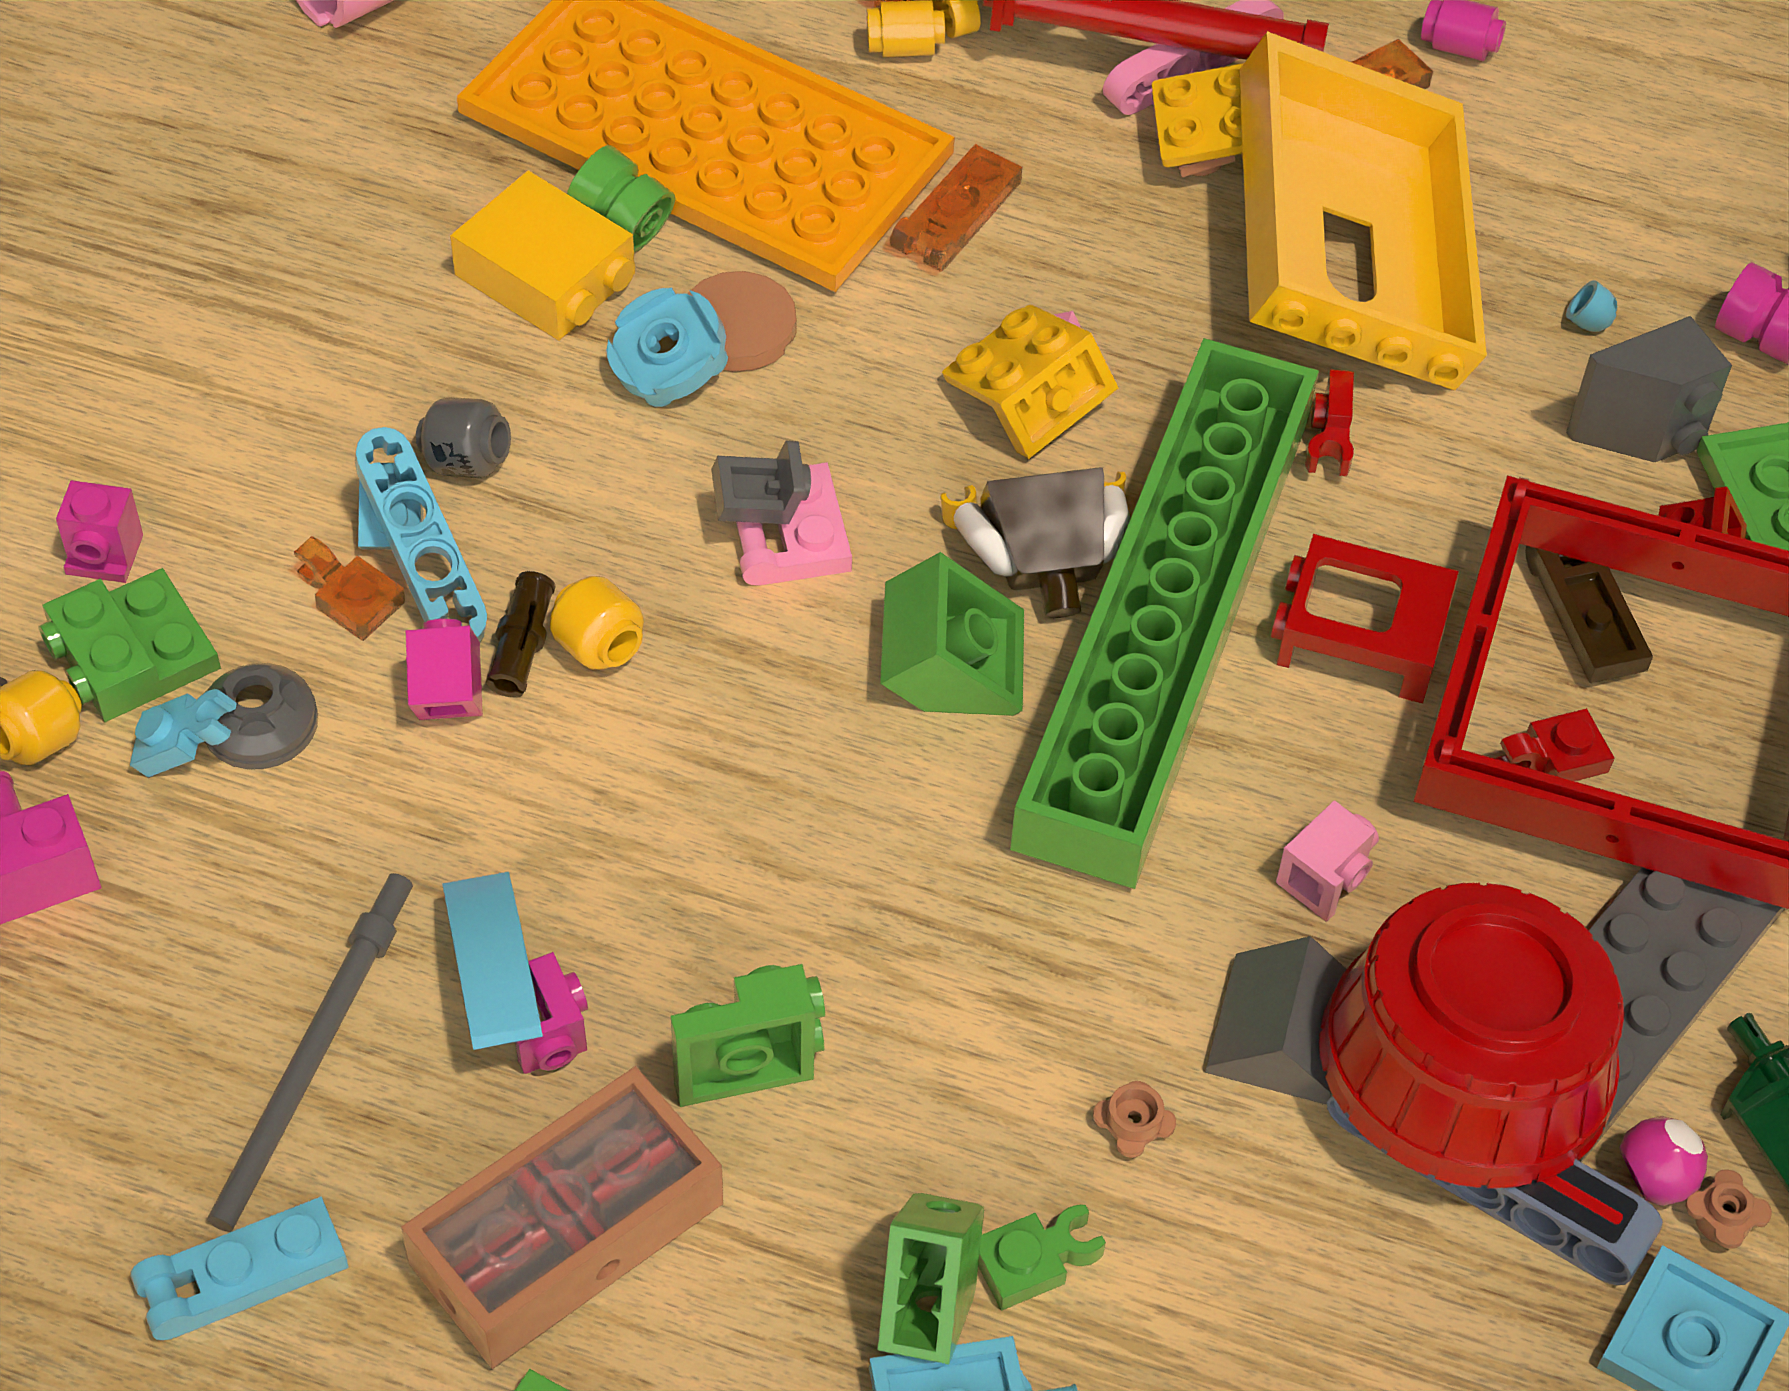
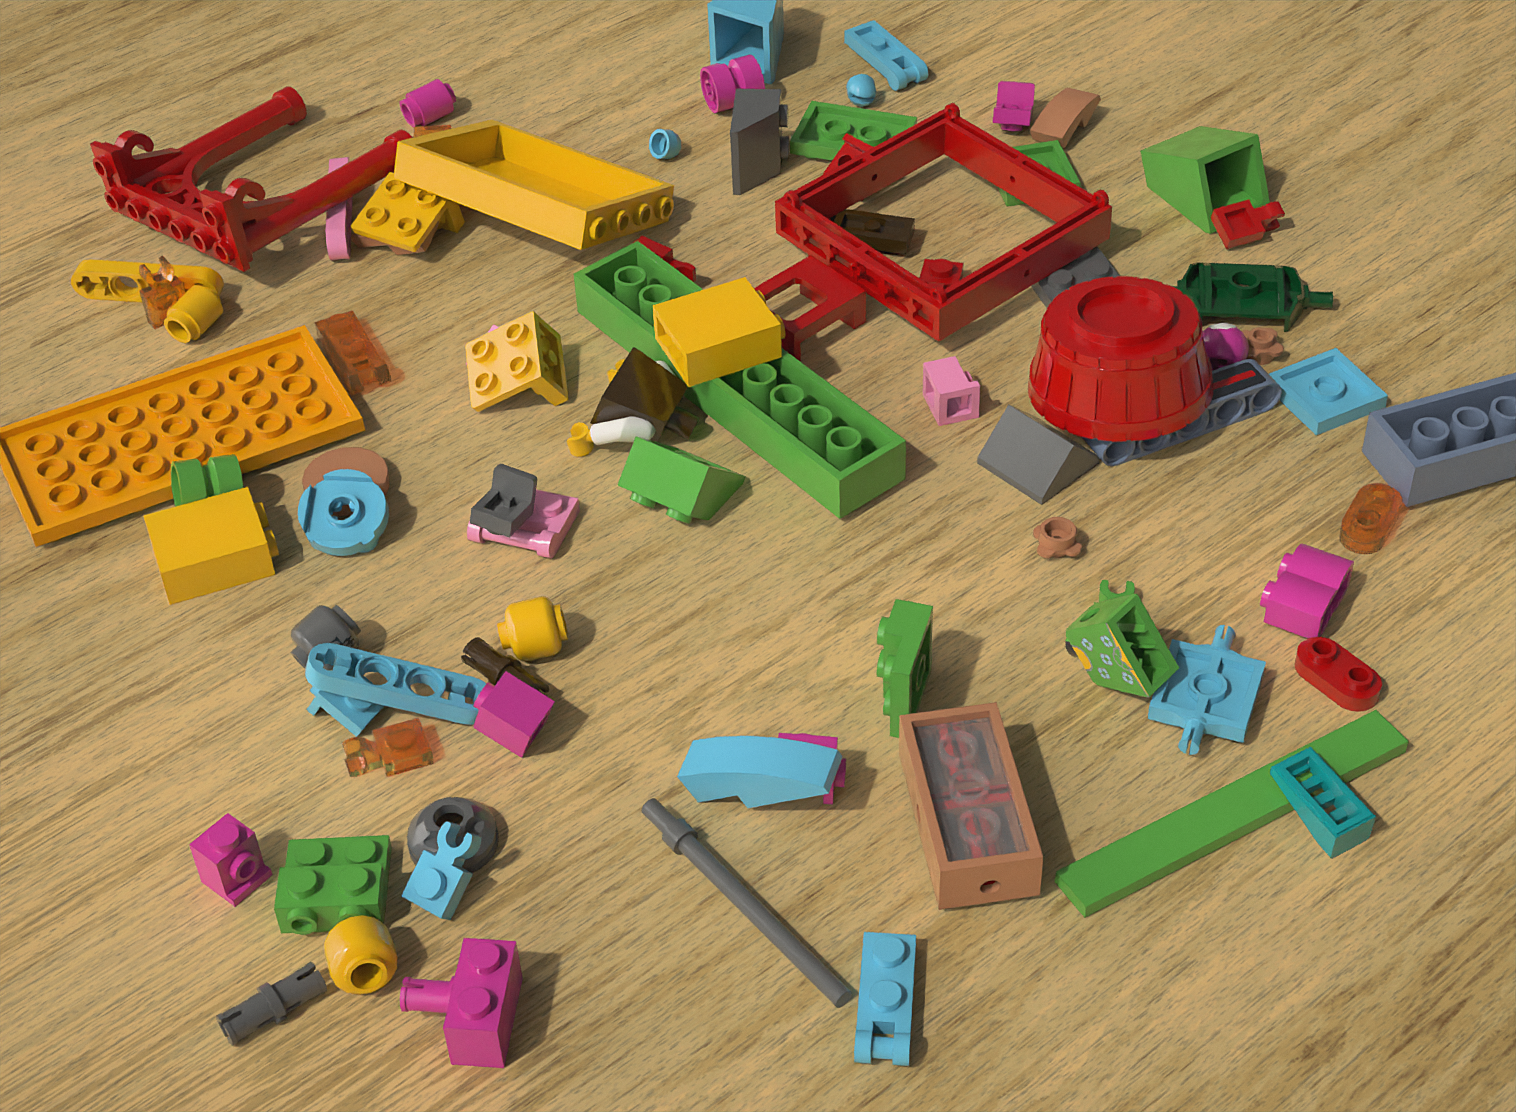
camera: 55 degrees left, 10 degrees down
(1178, 538) = (718, 331): none -> yellow brick

